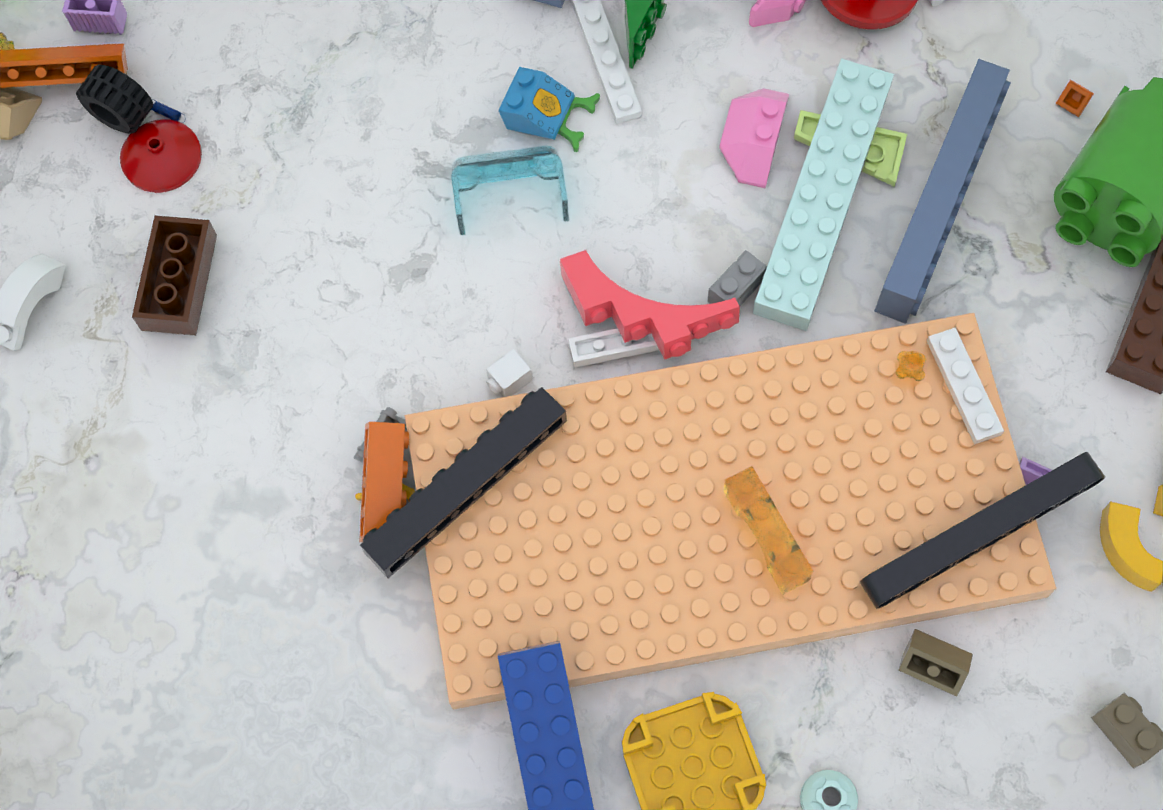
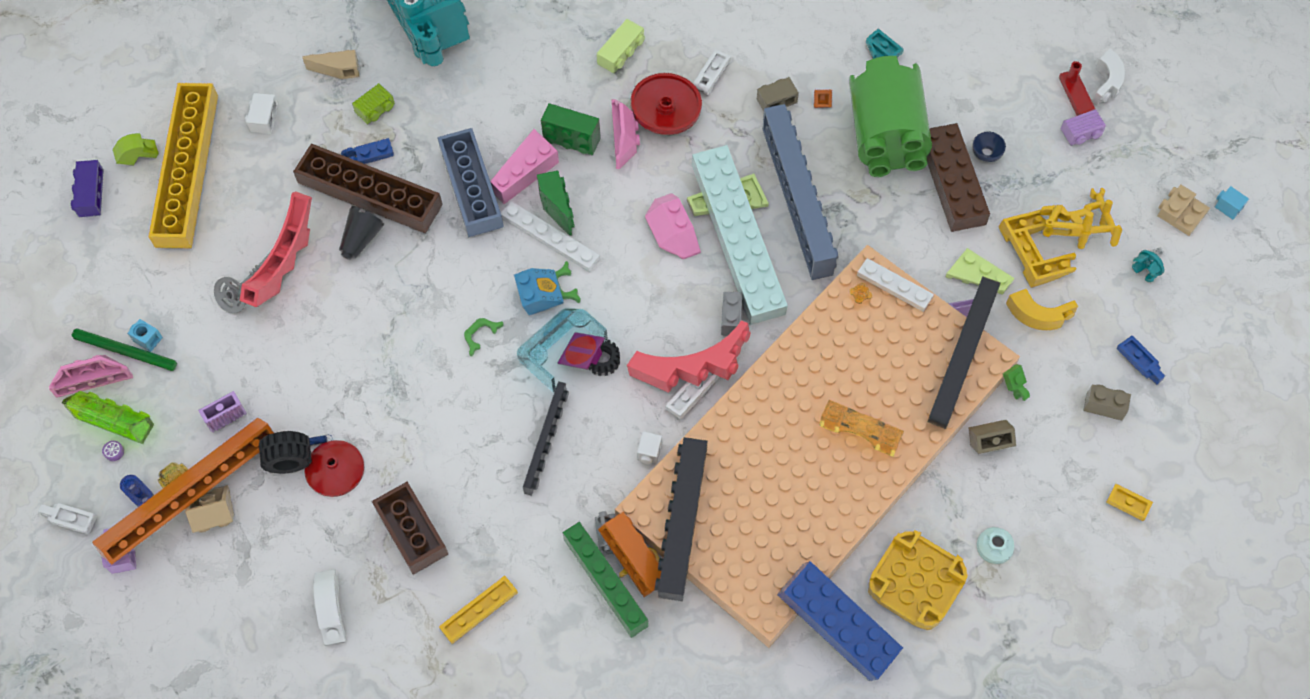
camera: 40 degrees left, 5 degrees down
(173, 419) = (478, 609): none -> yellow plate
(332, 489) = (605, 579): none -> green brick
(396, 284) = (544, 446): none -> black plate
(432, 101) = (474, 327): none -> bright green helmet
(524, 208) = (582, 351): none -> piece
(540, 218) = (611, 364): none -> black tyre
(1020, 55) = (777, 93): none -> dark tan brick
(1025, 613) = (1014, 381): none -> bright green plate
(1097, 434) = (972, 267): none -> yellowish green wing

